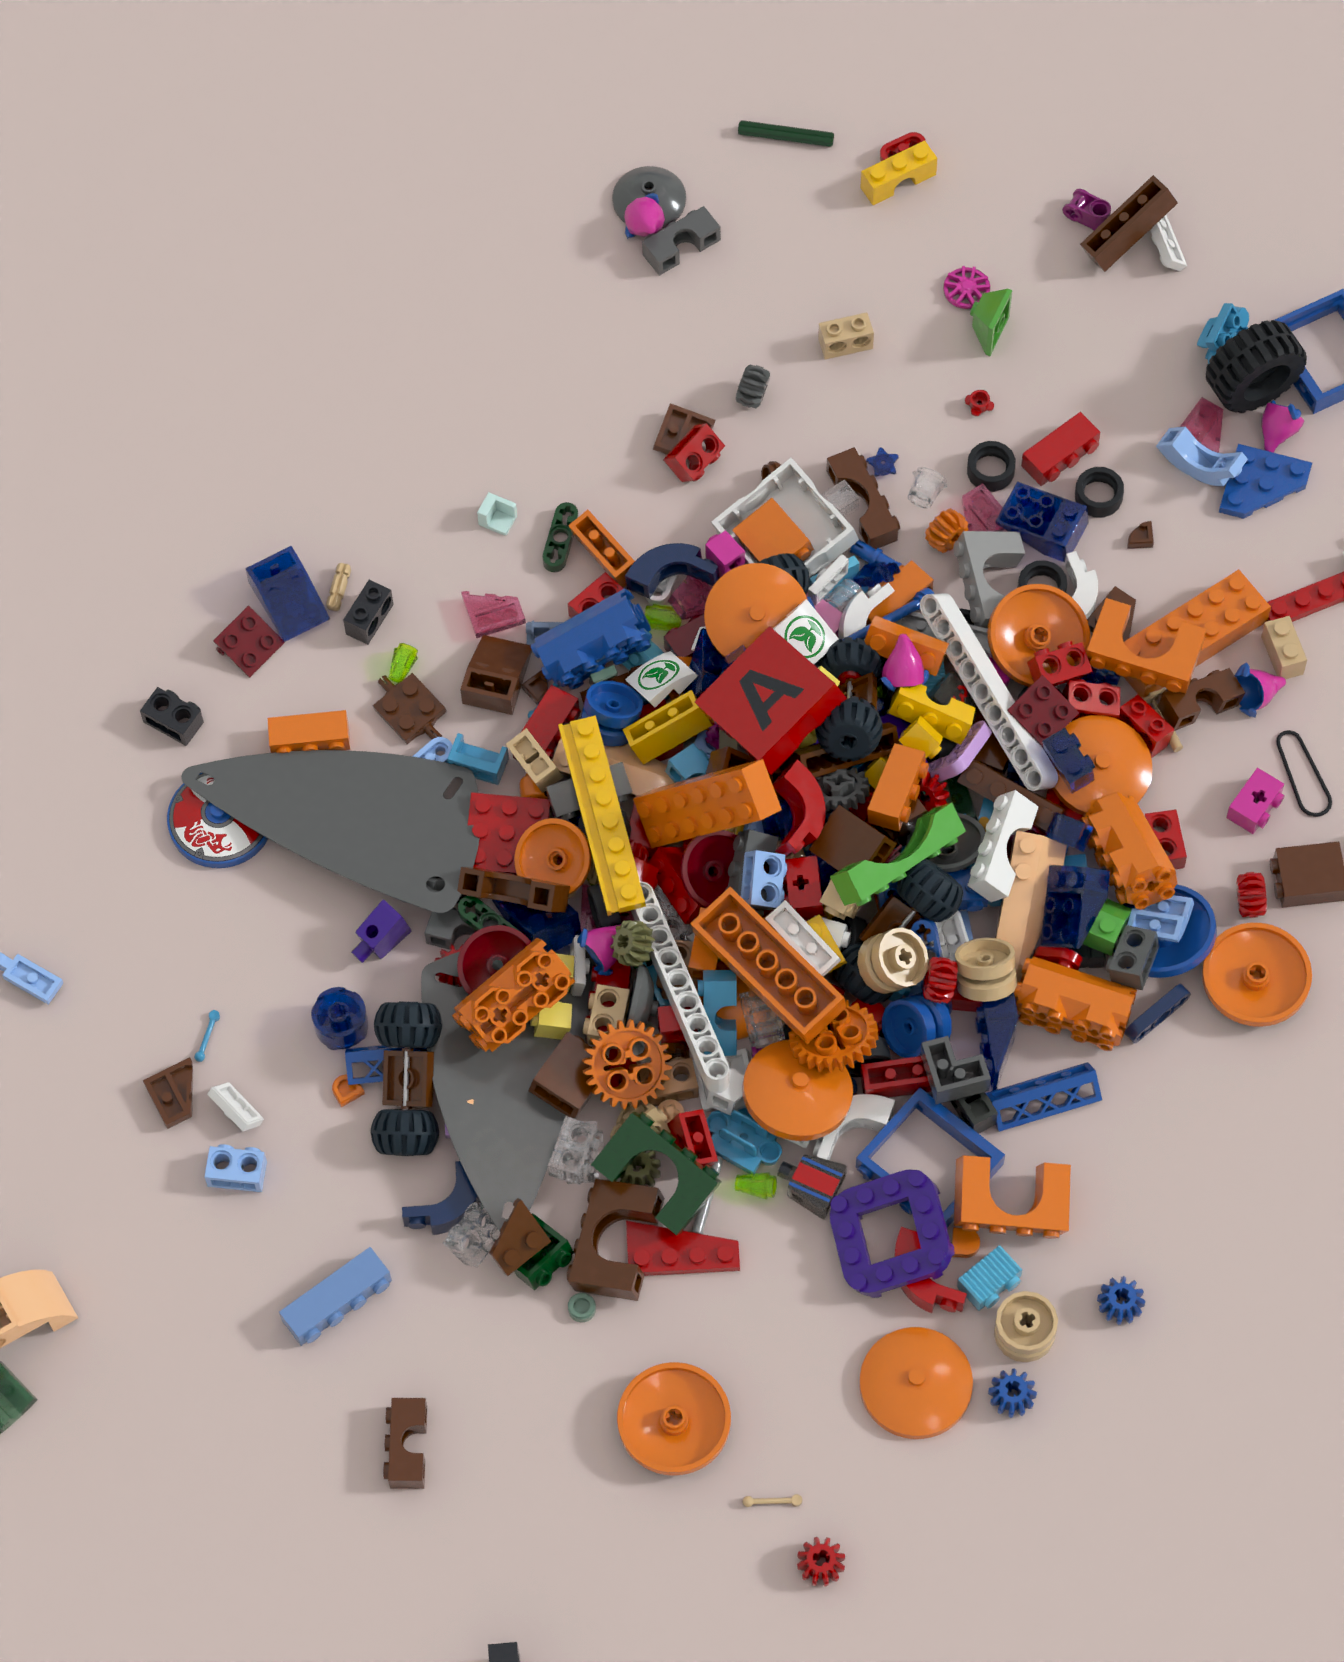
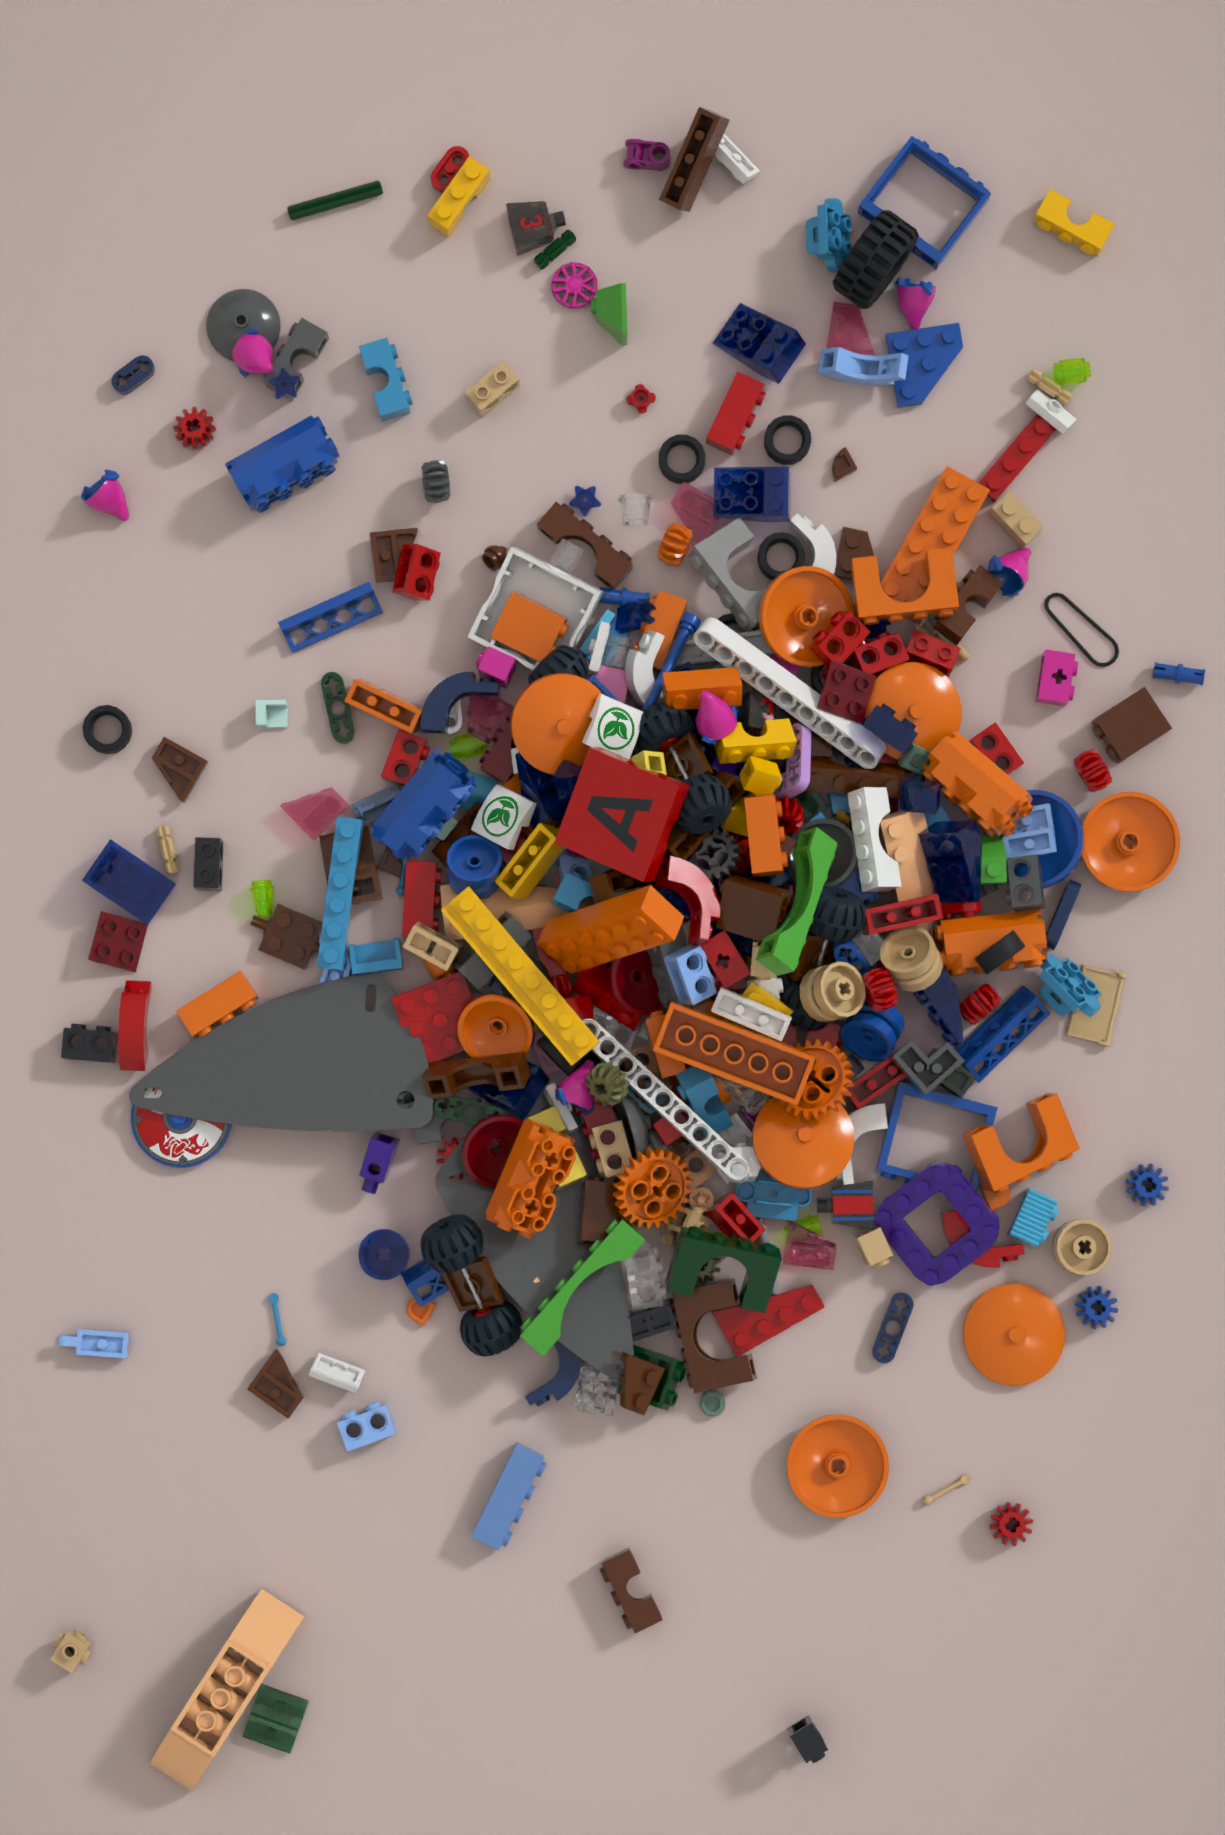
camera: 30 degrees left, 20 degrees up
(218, 714) = (133, 1025): none -> red arch
(336, 447) = (101, 711): none -> black tyre
(388, 522) = (179, 767): none -> reddish brown wing
(450, 276) = (107, 496): none -> dark pink hat
(496, 651) = (340, 893): none -> dark azure arch
(529, 195) = (129, 370): none -> dark blue beam
(559, 256) = (192, 420): none -> red gear
(562, 1196) = (651, 1321): none -> black hinge
(564, 1097) = (546, 1326): none -> bright green arch
(595, 452) = (327, 608): none -> blue fence
(628, 312) = (284, 462): none -> blue brick
(654, 254) = (281, 390): none -> clear blue plate
(750, 307) = (379, 358): none -> dark azure arch
(750, 1201) = (808, 1248): none -> clear pink wing
(797, 1307) = (904, 1312): none -> dark blue beam
(816, 1227) = (874, 1247): none -> tan brick
(953, 222) = (532, 224): none -> clear smoke torso
(964, 251) = (555, 249): none -> dark green axle
(992, 921) = (902, 914): none -> red brick
(1035, 1054) = (979, 1004): none -> red gear
(1074, 995) = (1000, 952): none -> black tyre
(1080, 803) = (914, 758): none -> sand green tile
(1116, 402) = (760, 342): none -> clear blue slope
(1132, 1077) = (1069, 986): none -> dark azure piece
(1159, 1107) = (1100, 1026): none -> tan door

